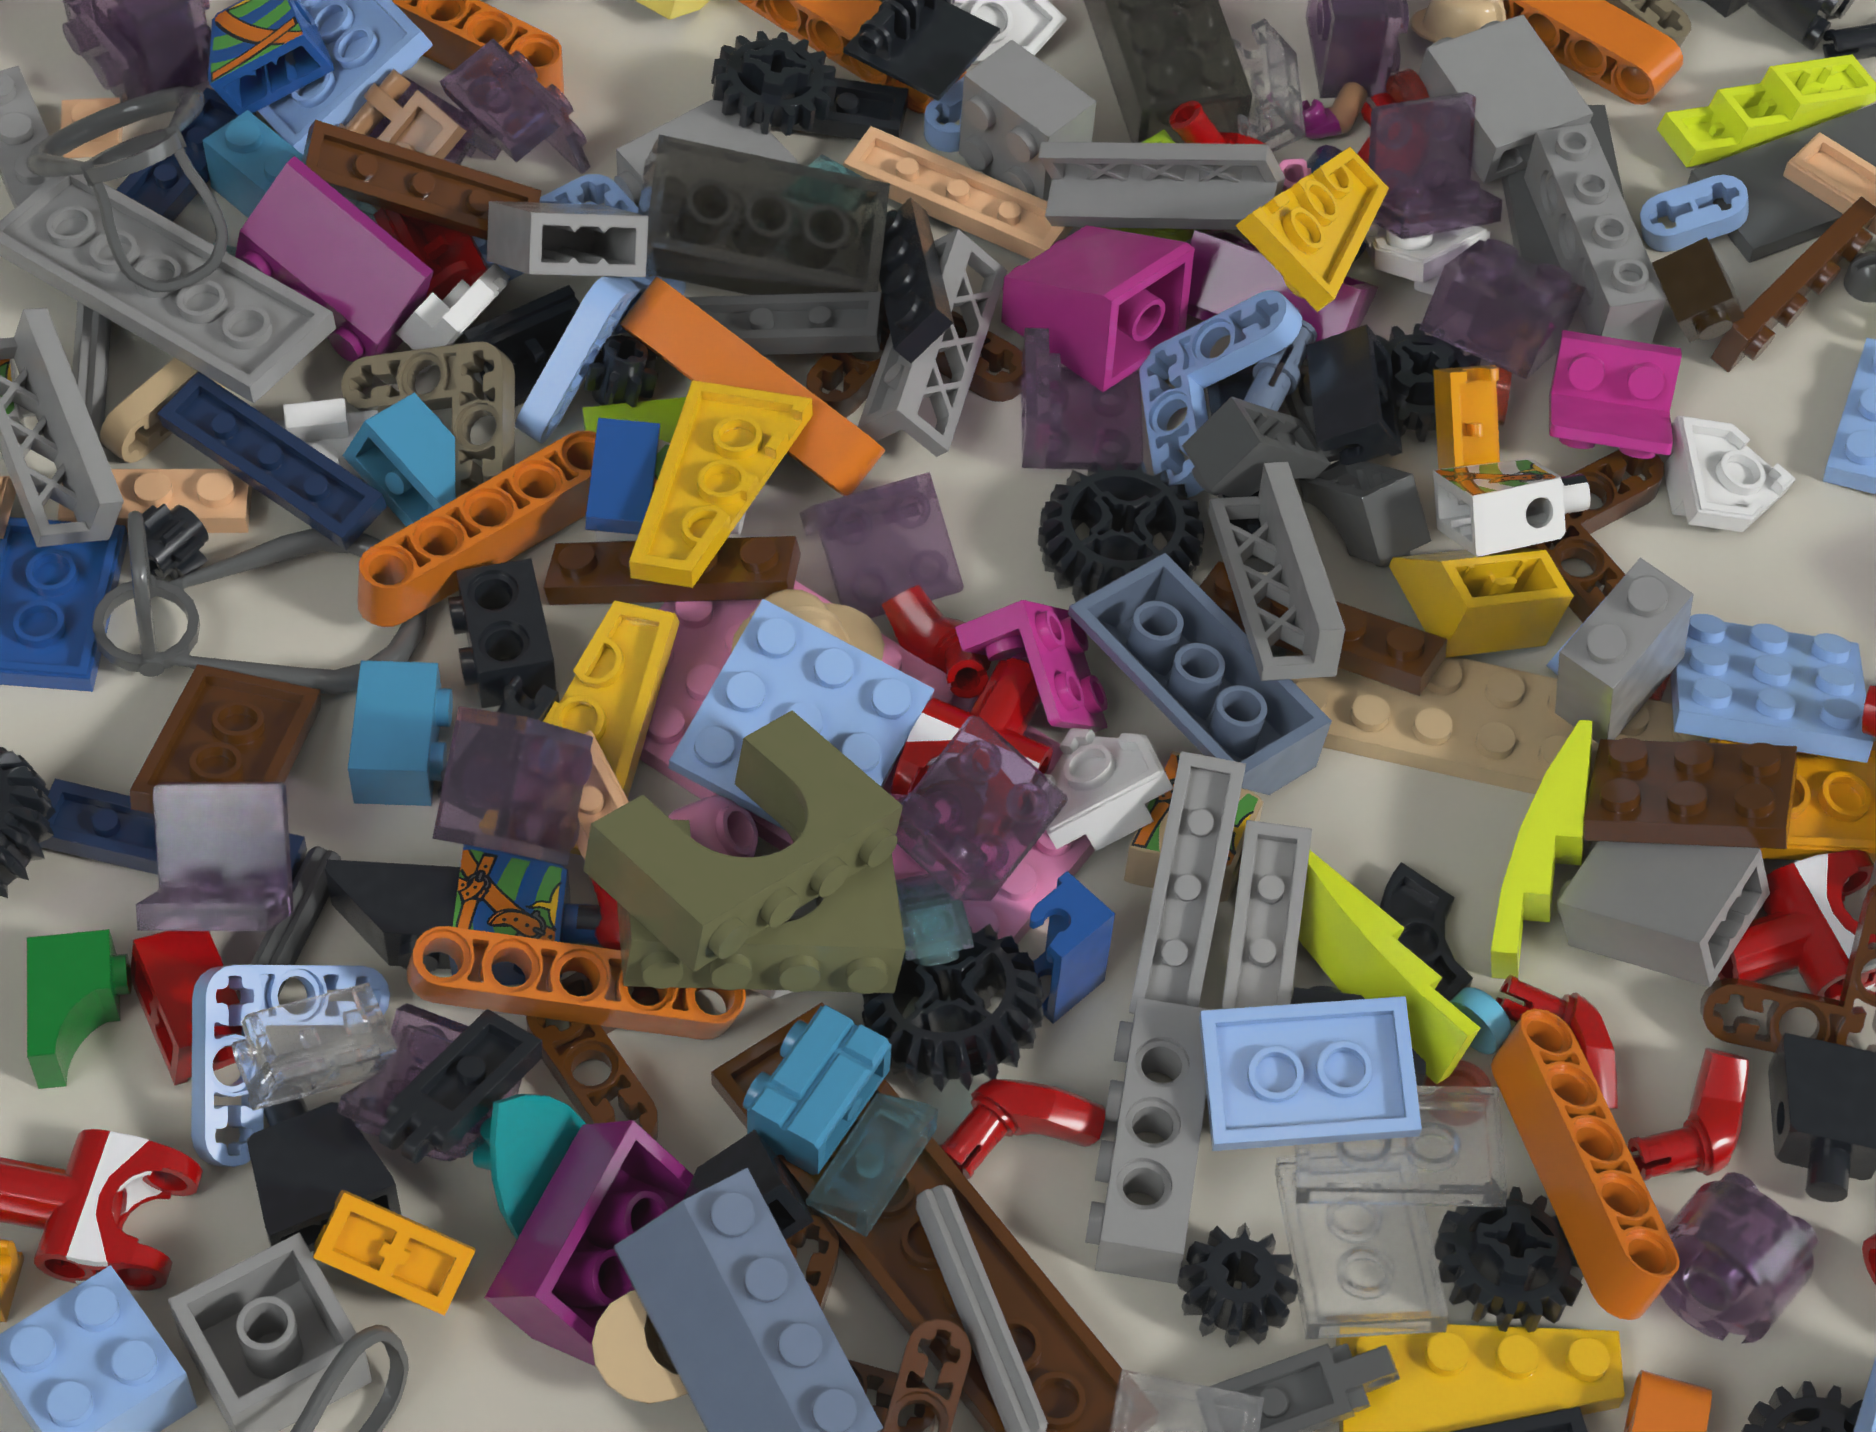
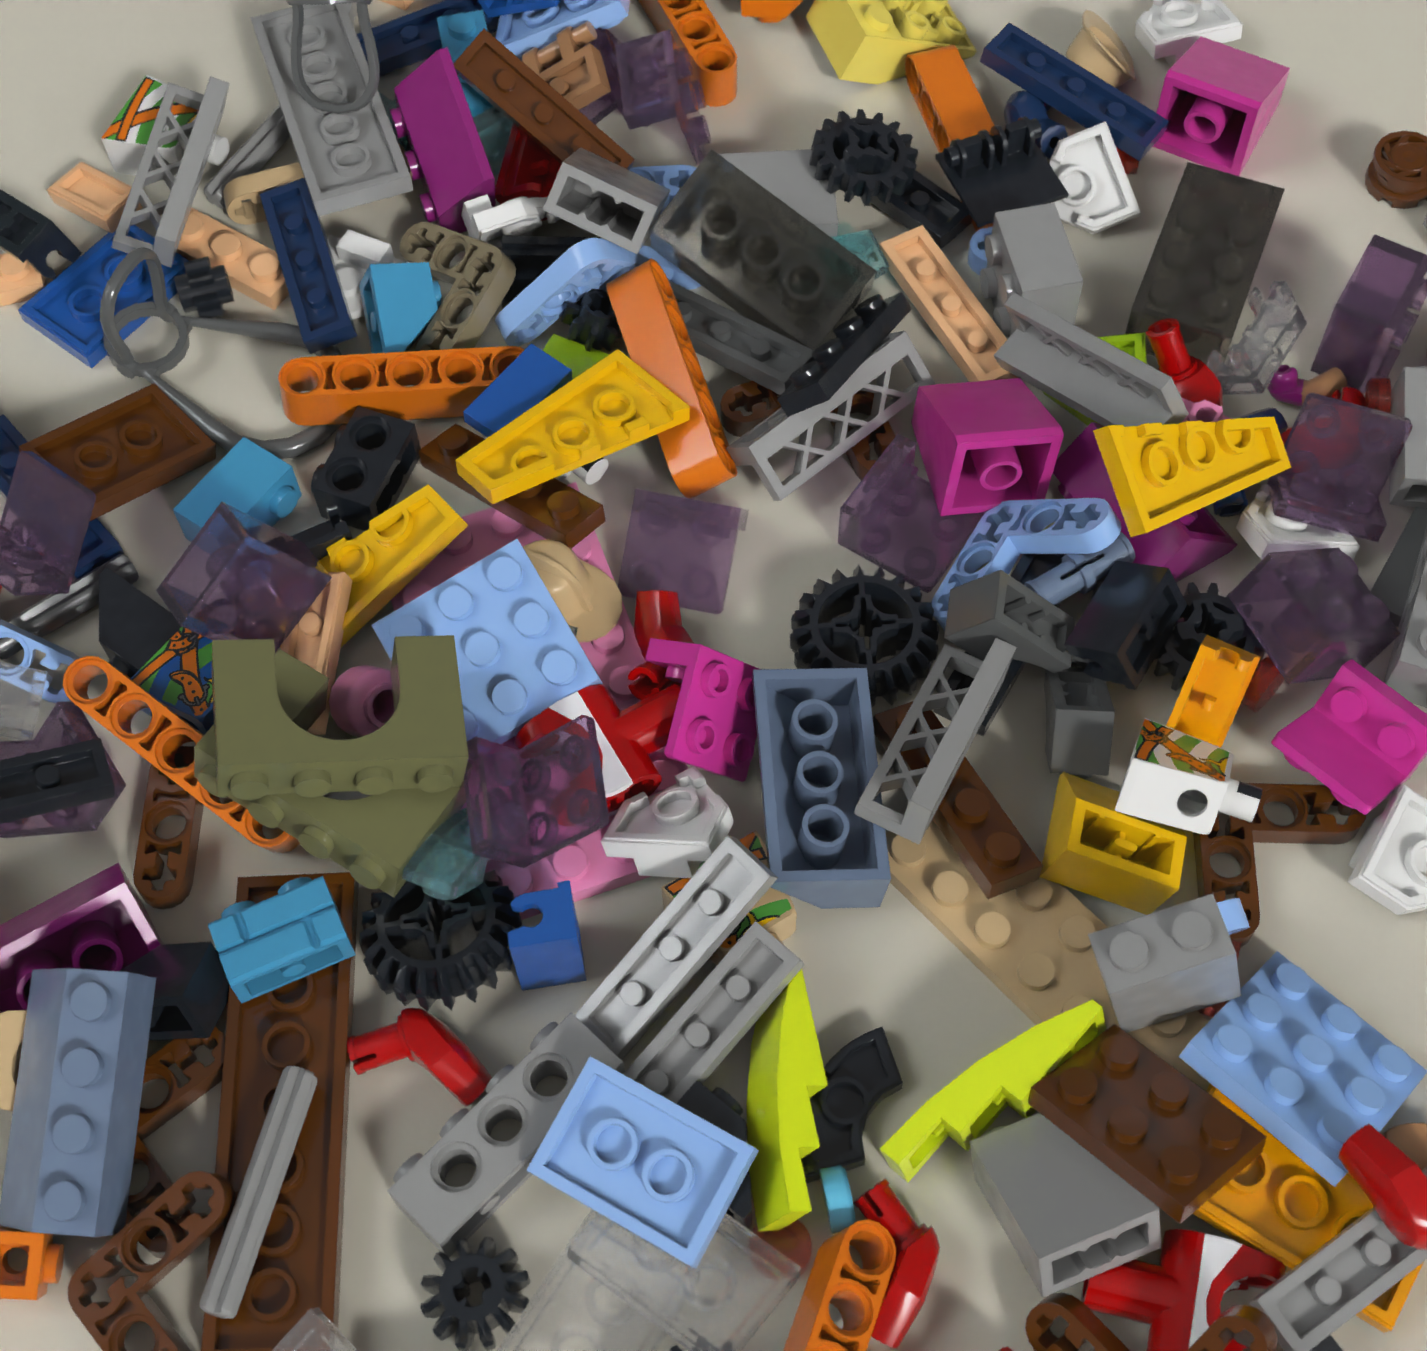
camera: 40 degrees right, 5 degrees up
(523, 1150) = (56, 854): teal shield -> none
(874, 1161) = (282, 1020): clear light blue slope -> none

